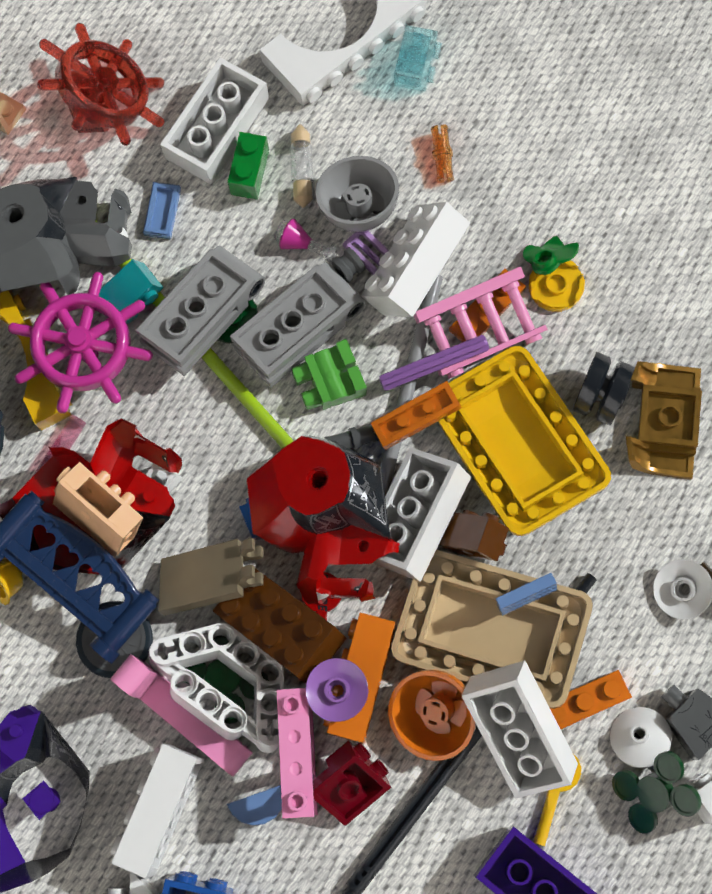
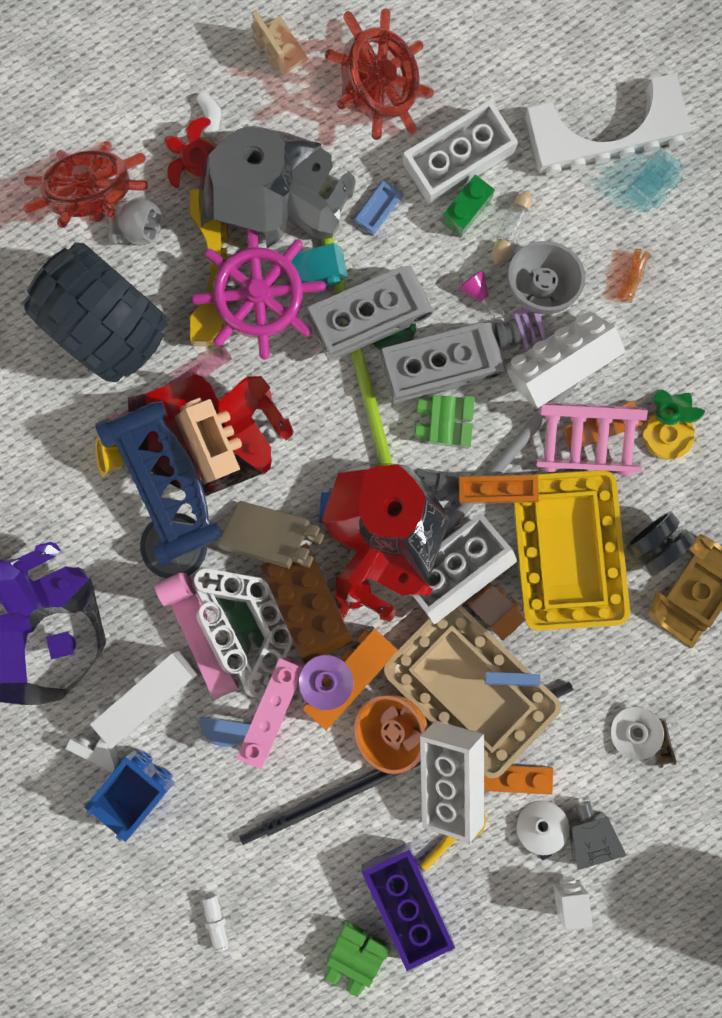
camera: 20 degrees right, 10 degrees up
(350, 782) = (302, 751): dark red plate -> none
(434, 362) = (535, 453): medium lavender axle -> none
(656, 792) = (532, 878): dark green piece -> none

